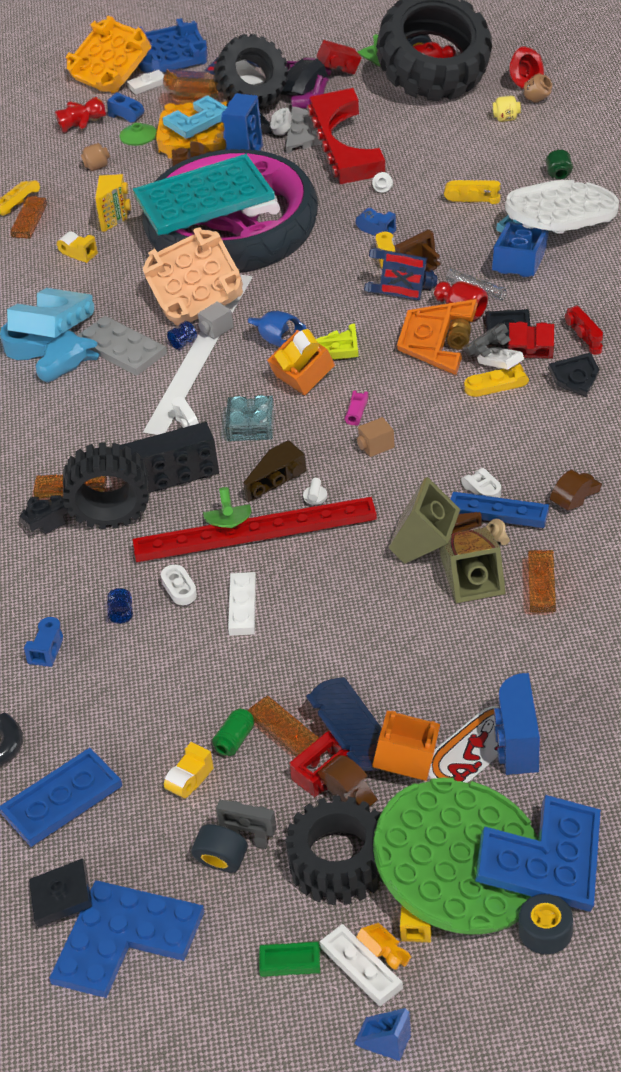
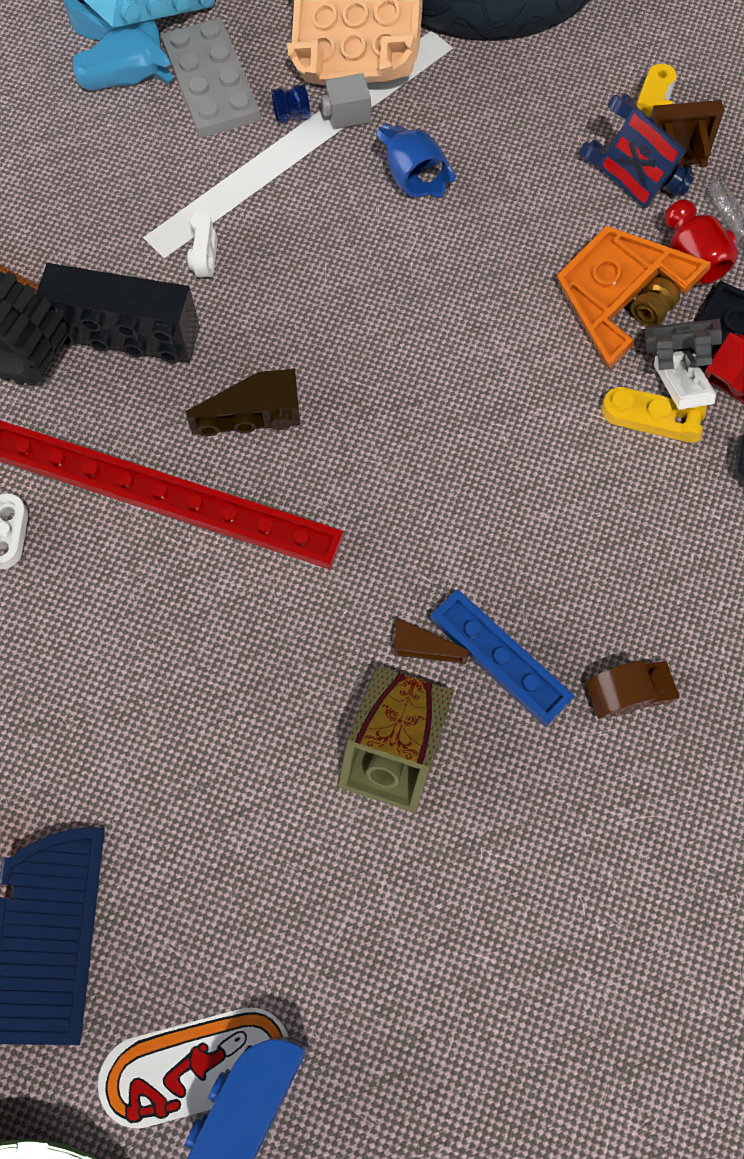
camera: 25 degrees right, 25 degrees up
(228, 515) = (141, 450): bright green shield -> none
(242, 419) = (276, 307): clear light blue piece -> none
(242, 603) = (63, 611): white plate -> none
(298, 351) = (395, 226): yellow leg -> none
(309, 375) = (403, 239): orange container -> none
(315, 493) = (279, 476): white plate -> none
(341, 344) = (479, 229): neon yellow wing -> none
(356, 407) = (433, 355): dark pink bar -> none
(374, 223) = (671, 40): blue leg -> none
(375, 437) = (420, 424): medium nougat brick -> none
(406, 745) = (73, 1040): orange container -> none
(424, 523) = (365, 643): olive slope -> none
(482, 483) = (510, 610): white plate -> none
(497, 530) = (472, 696): tan plate -> none
(541, 581) = (474, 830): clear orange plate -> none

